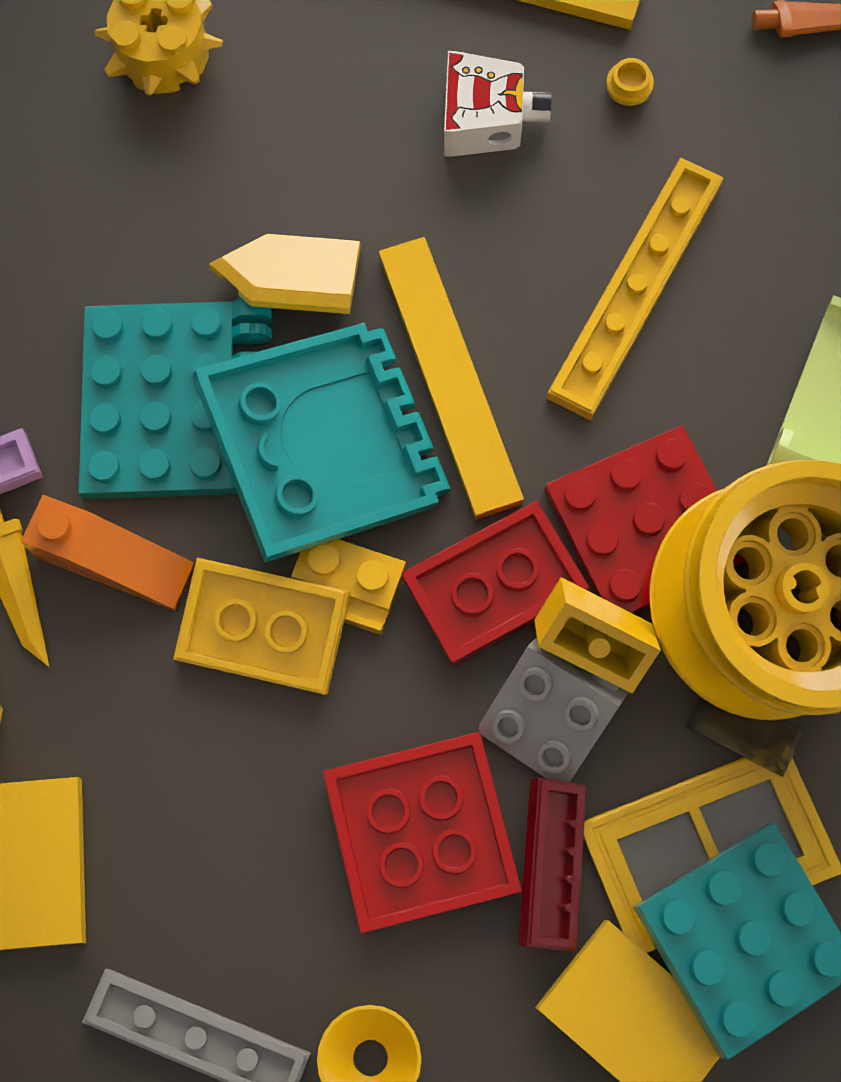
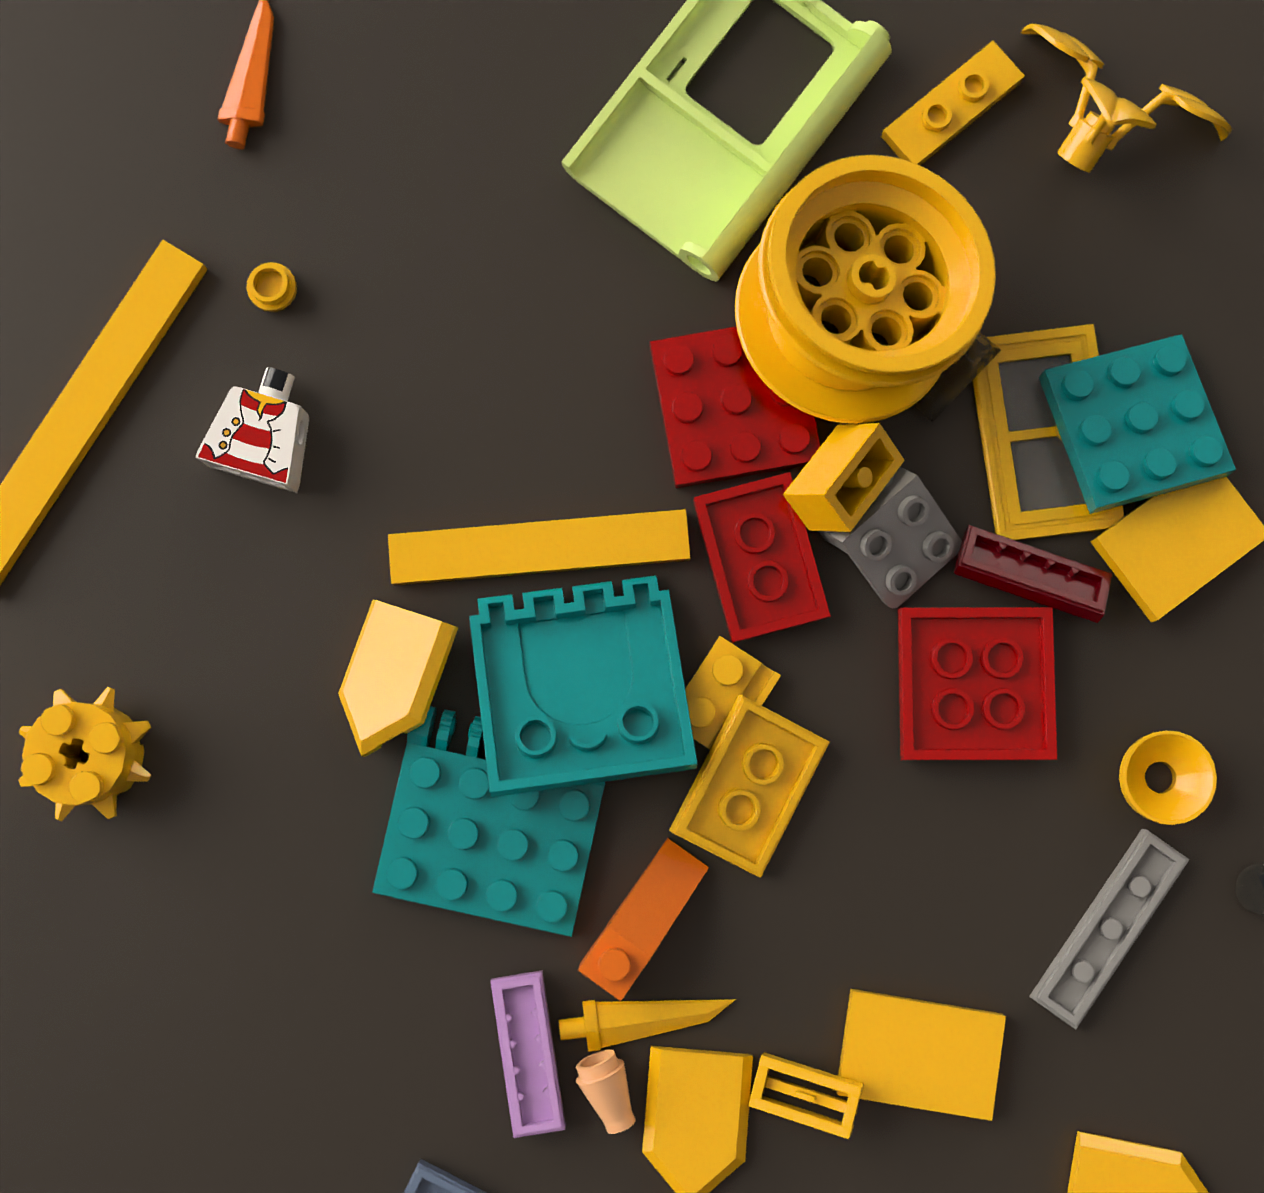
camera: 75 degrees left, 10 degrees up
(634, 289) = (493, 344): yellow tile -> none

